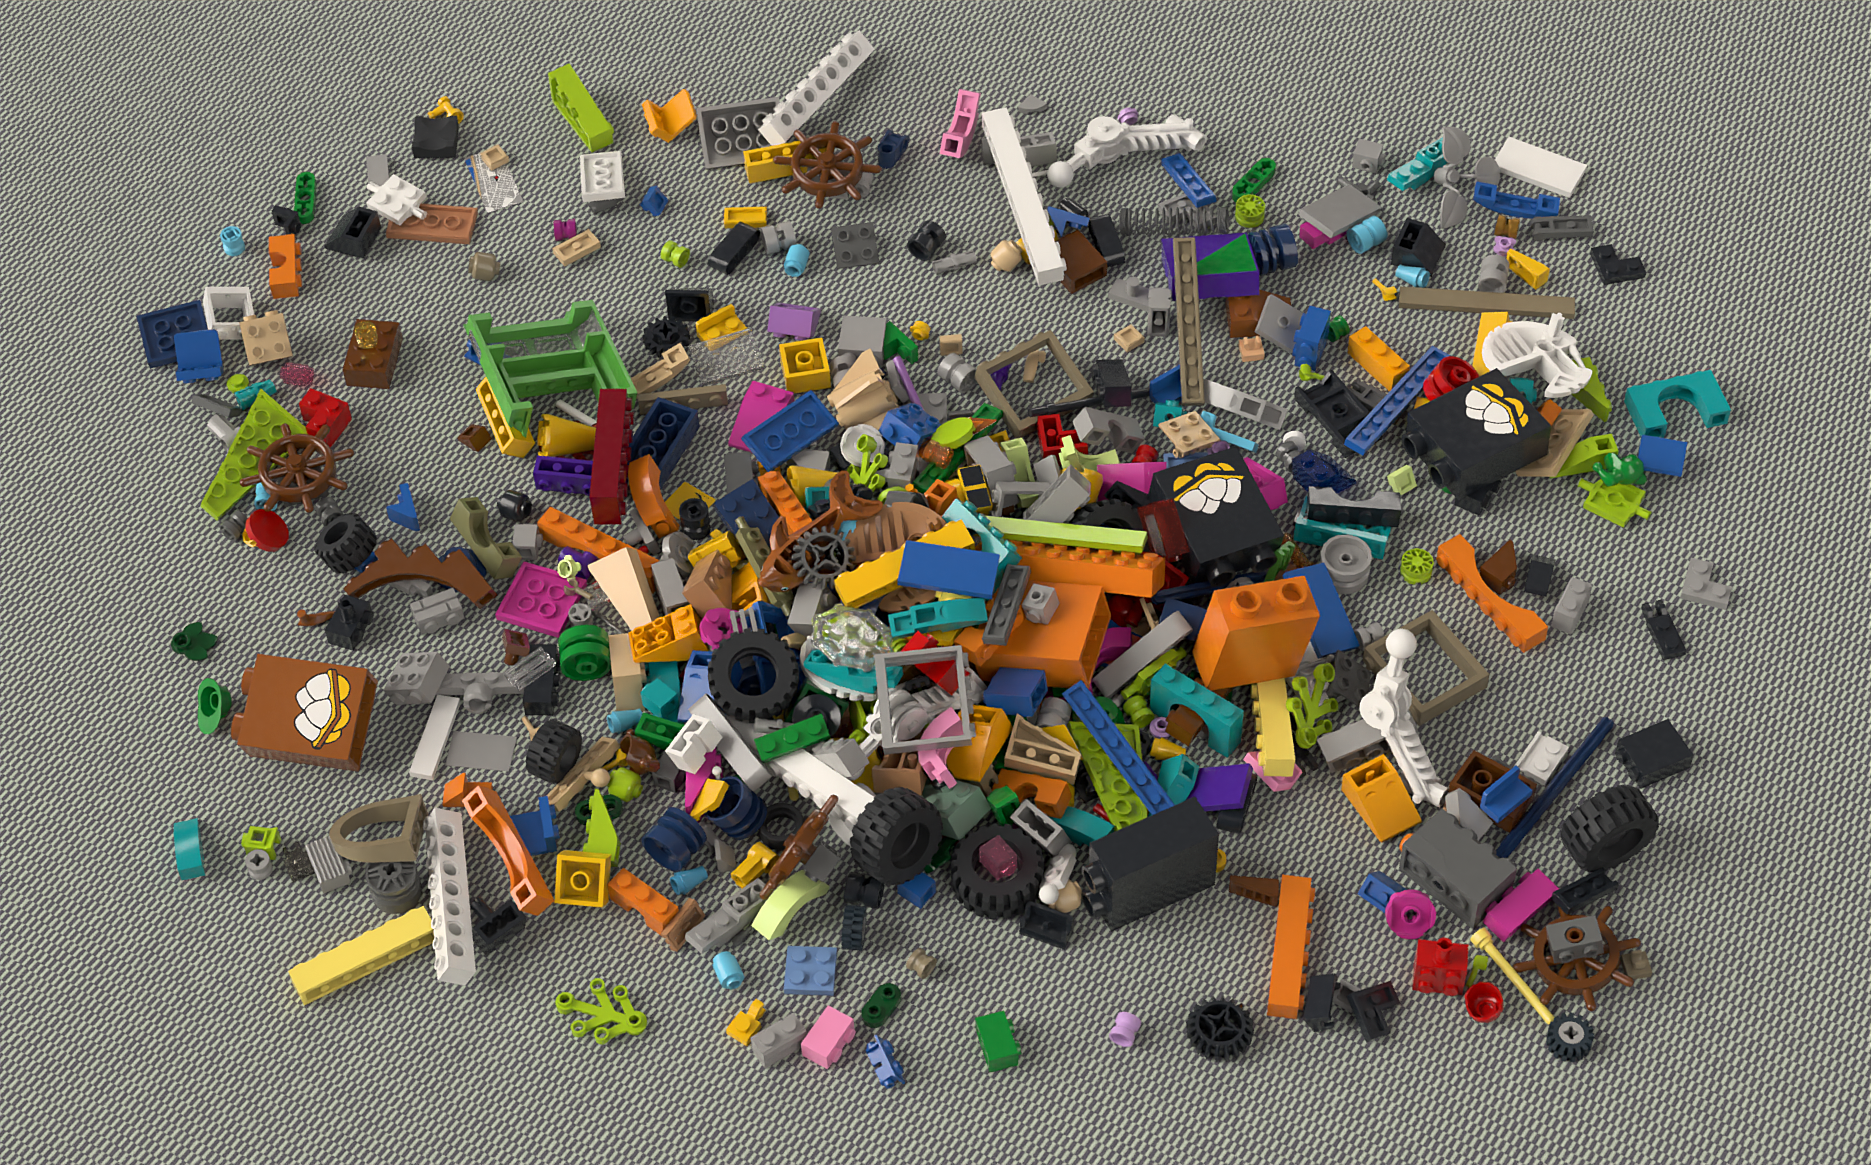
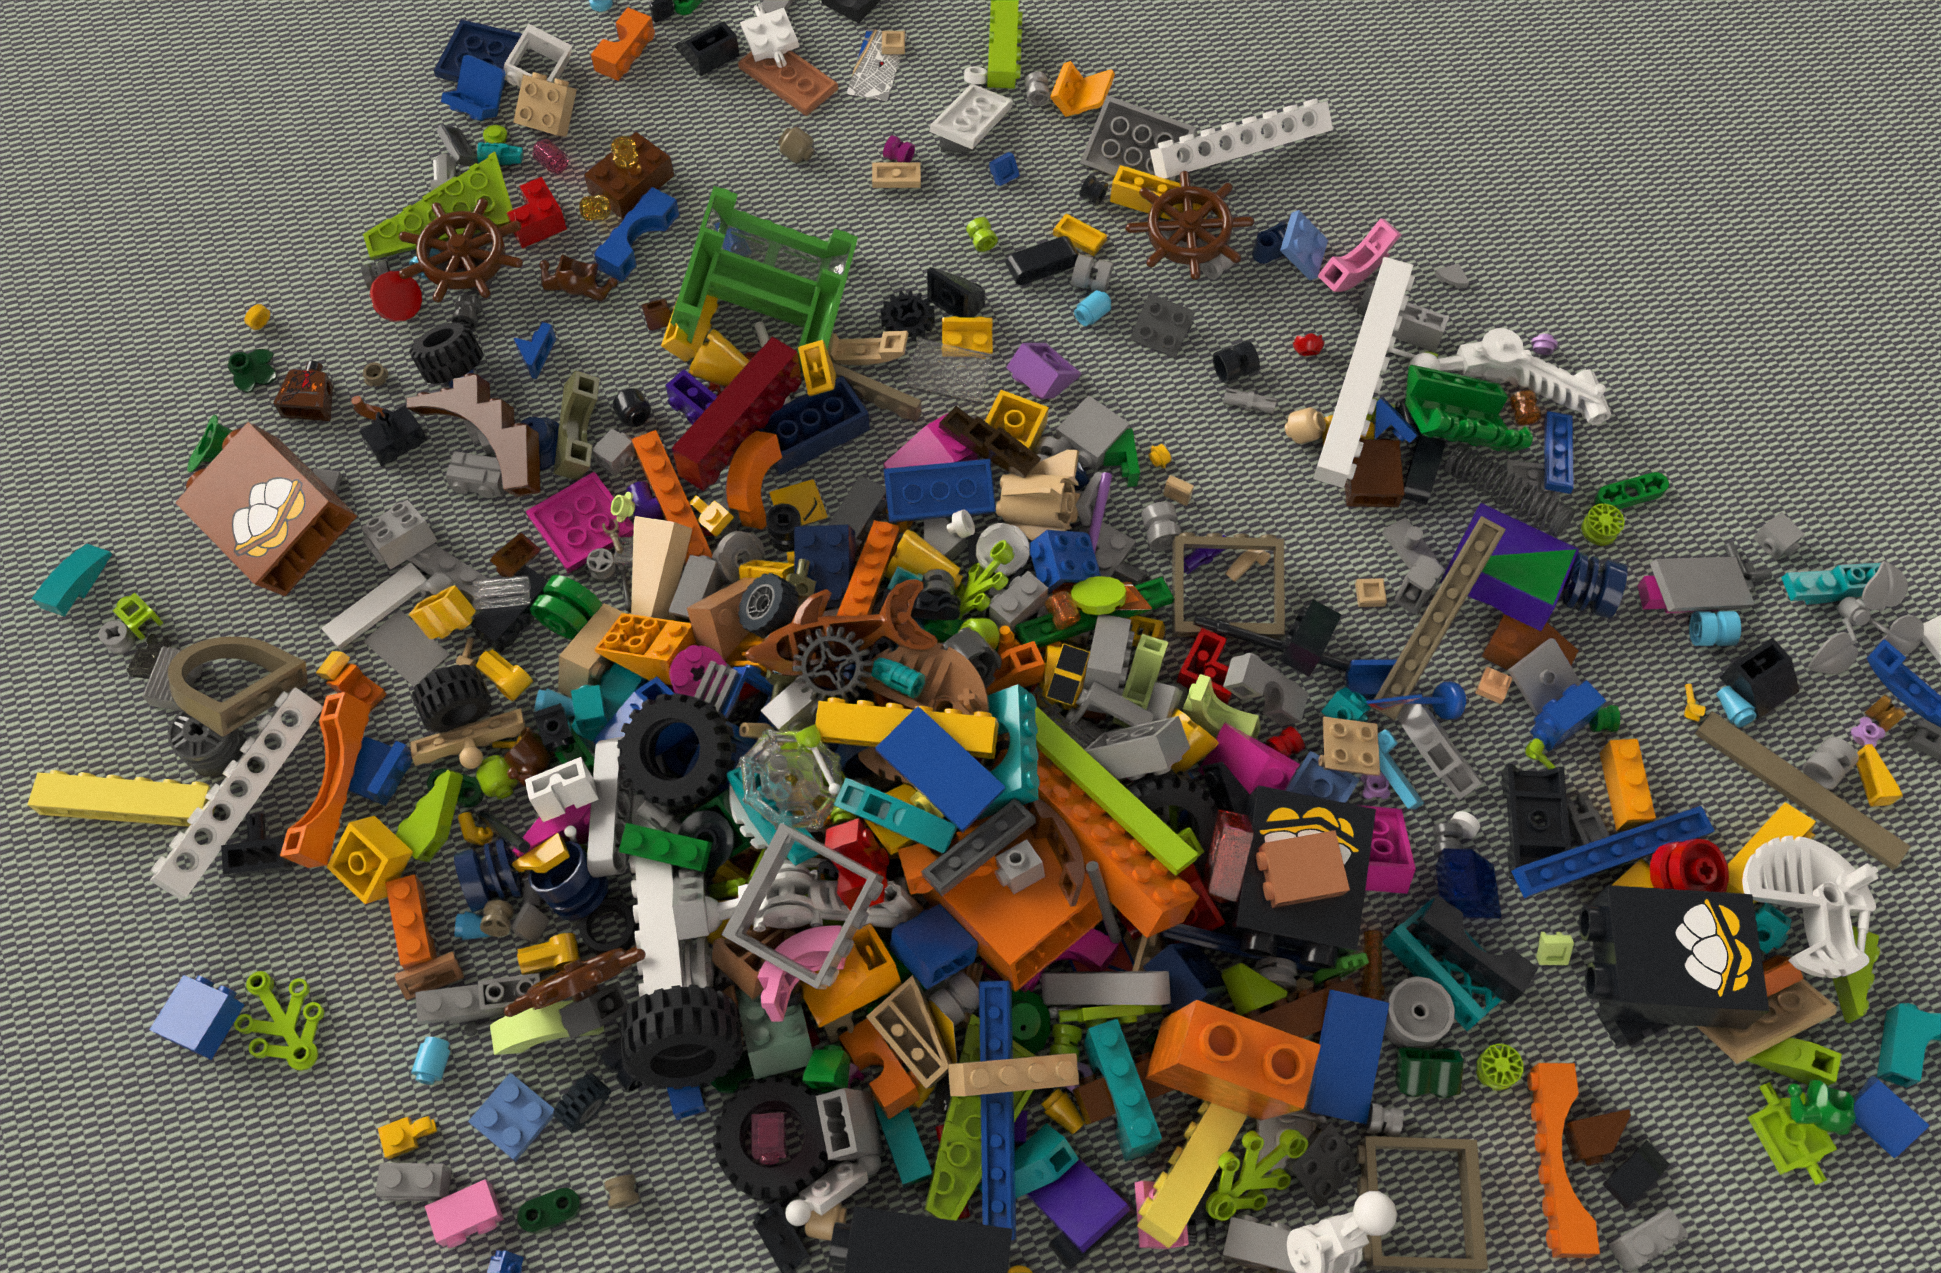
camera: 30 degrees right, 10 degrees up
(166, 604) = (257, 317): none -> yellow tile
(256, 632) = (305, 394): none -> reddish brown torso
(295, 588) = (374, 369): none -> dark tan plate
(362, 392) = (595, 207): none -> clear yellow wheel
(393, 446) = (575, 279): none -> reddish brown piece
(413, 371) = (652, 213): none -> blue arch
(440, 788) = (333, 665): none -> yellow tile
(497, 706) = (443, 613): none -> yellow brick
(544, 1039) = (198, 1015): none -> brick
(578, 147) = (975, 75): none -> white tile
(582, 720) = (507, 678): none -> yellow piece
(634, 830) = (472, 833): none -> yellow arm
(636, 135) = (1037, 88): none -> light grey wheel
(640, 538) = (712, 517): none -> yellow plate
(643, 403) = (817, 368): none -> yellow slope
(649, 727) = (552, 717): none -> black brick
(665, 804) = (504, 831): none -> black bar
(703, 859) = (496, 918): none -> dark tan wheel
(732, 180) = (1093, 189): none -> black wheel
(740, 557) = (768, 605): none -> black wheel
(800, 381) = (989, 443): none -> dark brown slope
(822, 444) = (961, 524): none -> white tile
(847, 605) = (809, 739): none -> hinge
(872, 539) = (898, 677): none -> teal hinge
(915, 137) = (1304, 245): none -> medium blue plate
(968, 203) = (1308, 345): none -> red plate
(1060, 576) = (1064, 846): none -> reddish brown slope
(1106, 186) = (1461, 409): none -> green slope
(1108, 594) = (1104, 901): none -> dark grey bar
(1110, 740) = (1013, 1074): none -> tan arch
(1143, 162) = (1525, 406): none -> clear orange wheel
(1218, 503) = (1302, 869): none -> nougat brick
(1228, 373) = (1447, 700): none -> blue piece
(1376, 592) = (1429, 1071): none -> dark green brick

